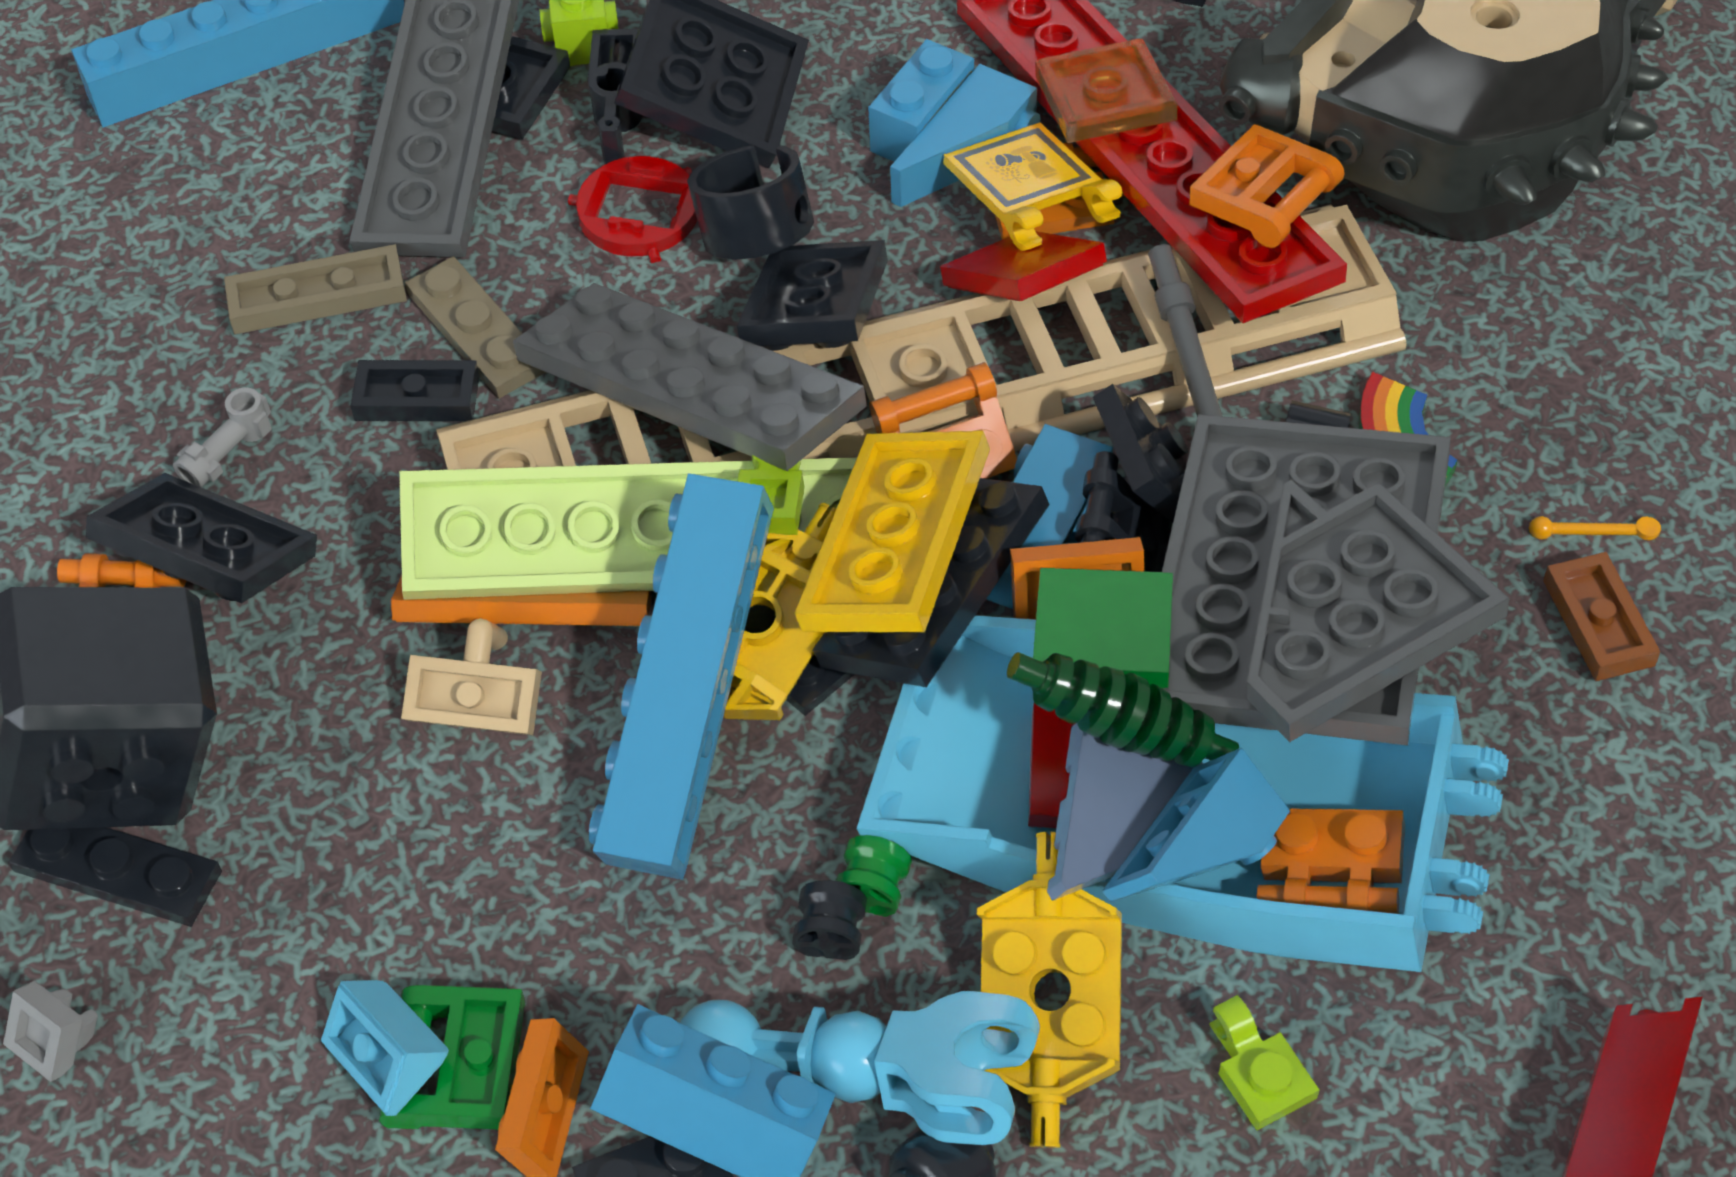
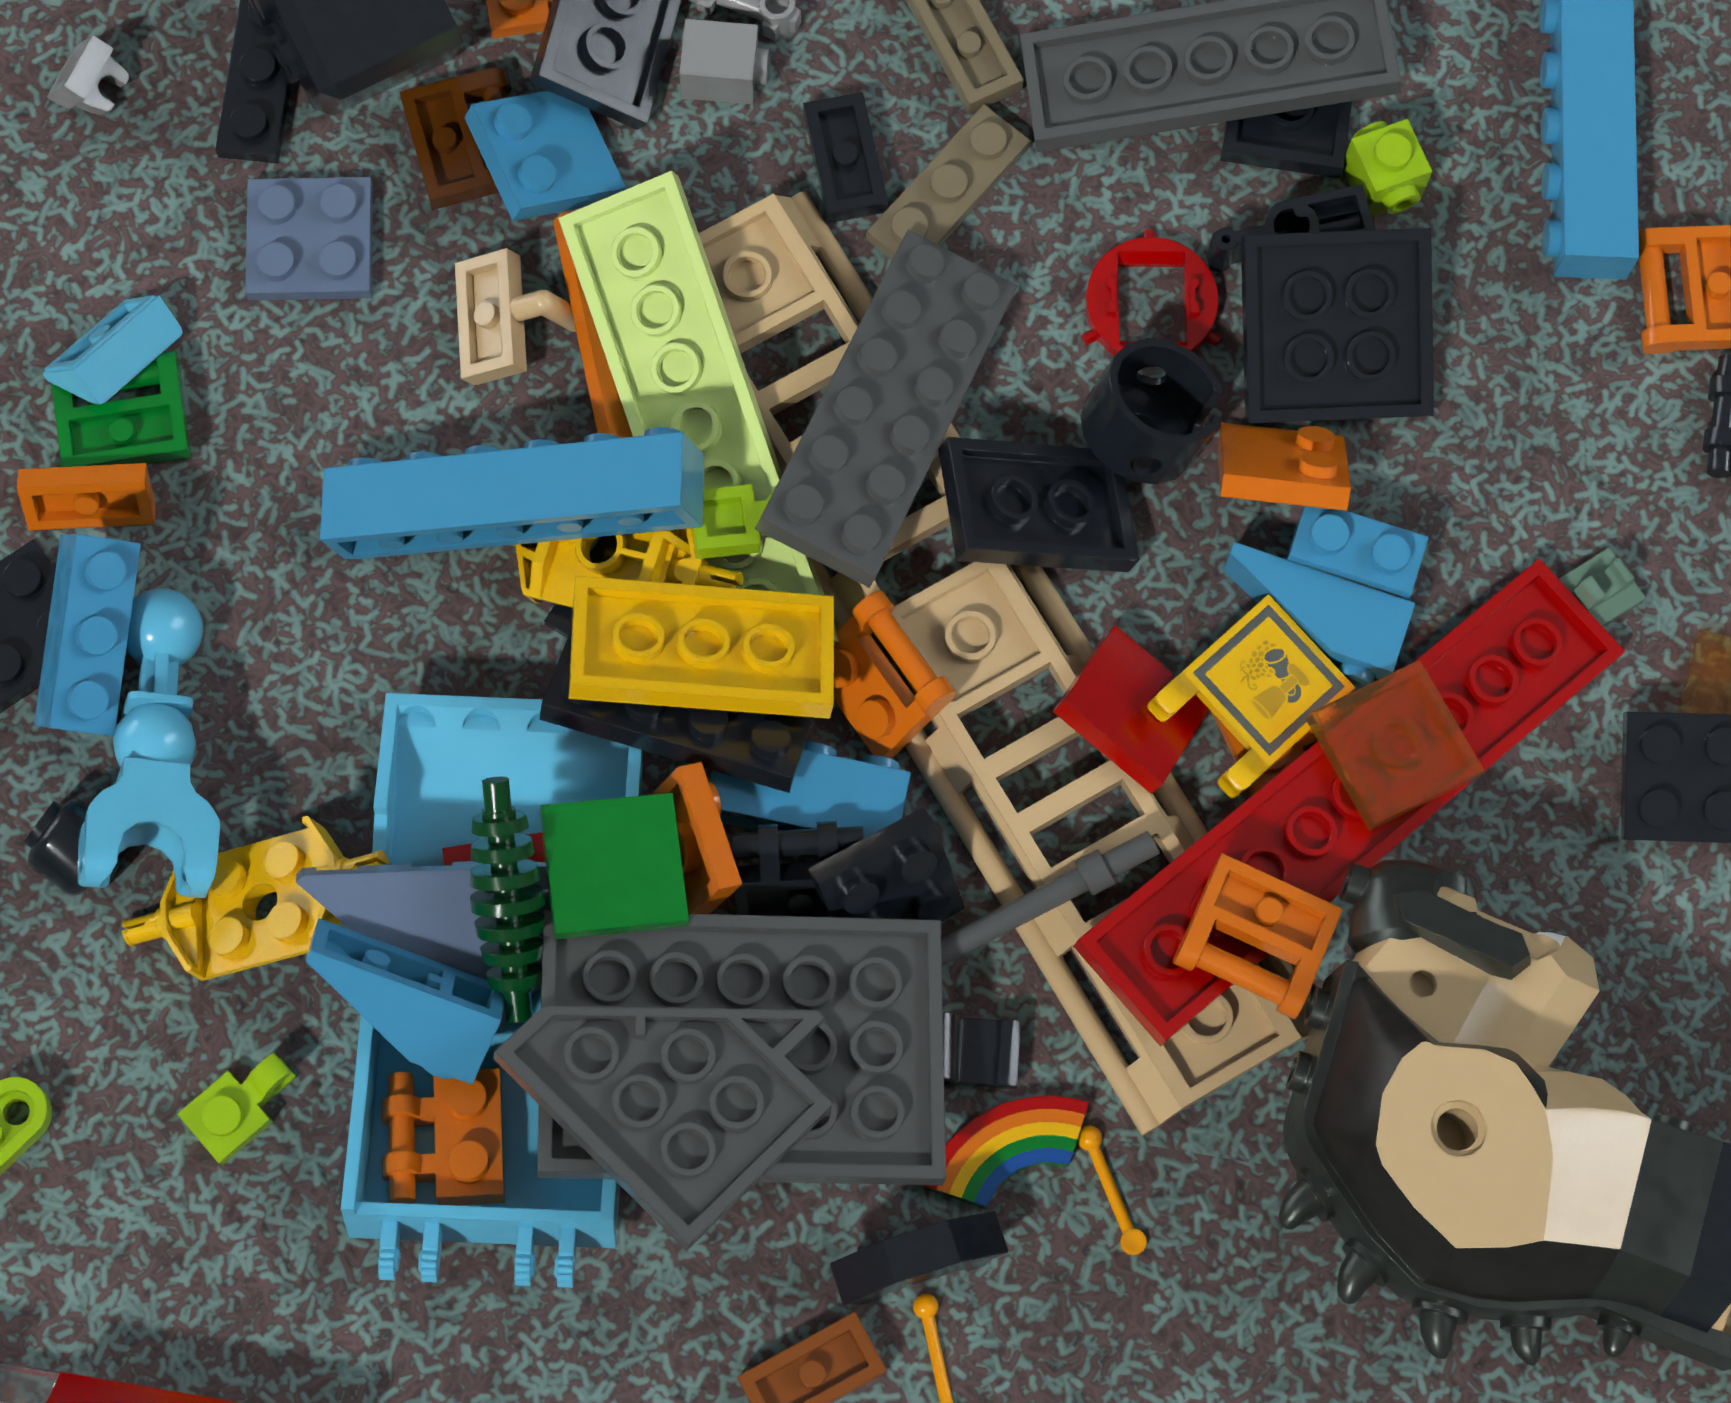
camera: 70 degrees right, 20 degrees up
(274, 703) = (443, 140): none -> reddish brown plate
(279, 463) = (721, 61): none -> light grey brick
(316, 618) = (543, 153): none -> dark azure plate
(320, 851) = (309, 238): none -> sand blue plate
(829, 920) = (308, 695): black wheel -> none
(834, 122) = (1284, 465): none -> orange plate
(876, 869) = (357, 721): green wheel -> none
(1498, 371) = (1132, 1240): none -> light orange hinge
(1513, 503) = (919, 1257): none -> black piece

